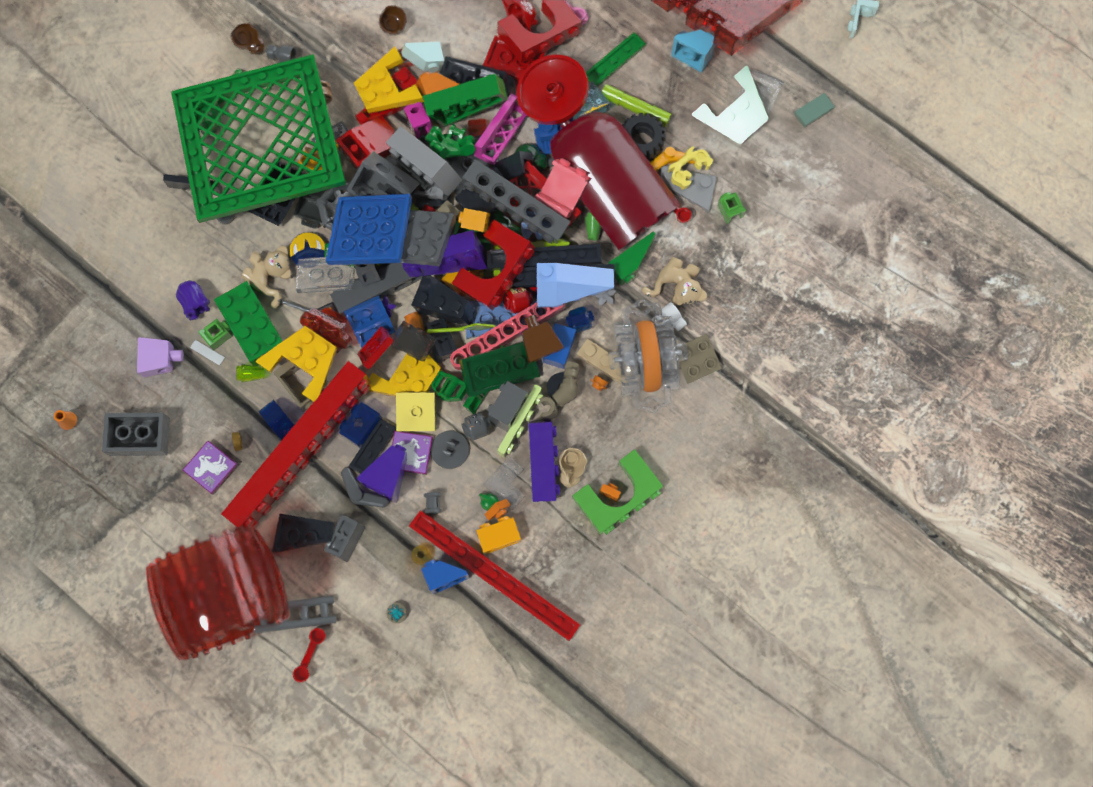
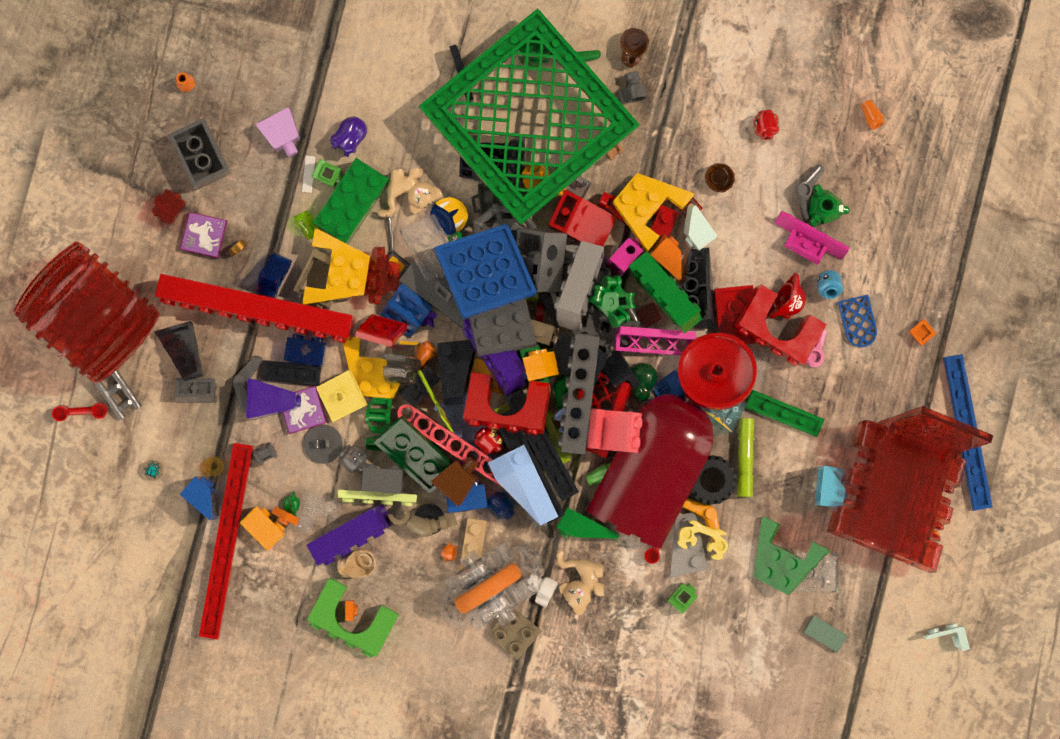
camera: 60 degrees right, 10 degrees up
(167, 485) = (168, 206): none -> clear red head

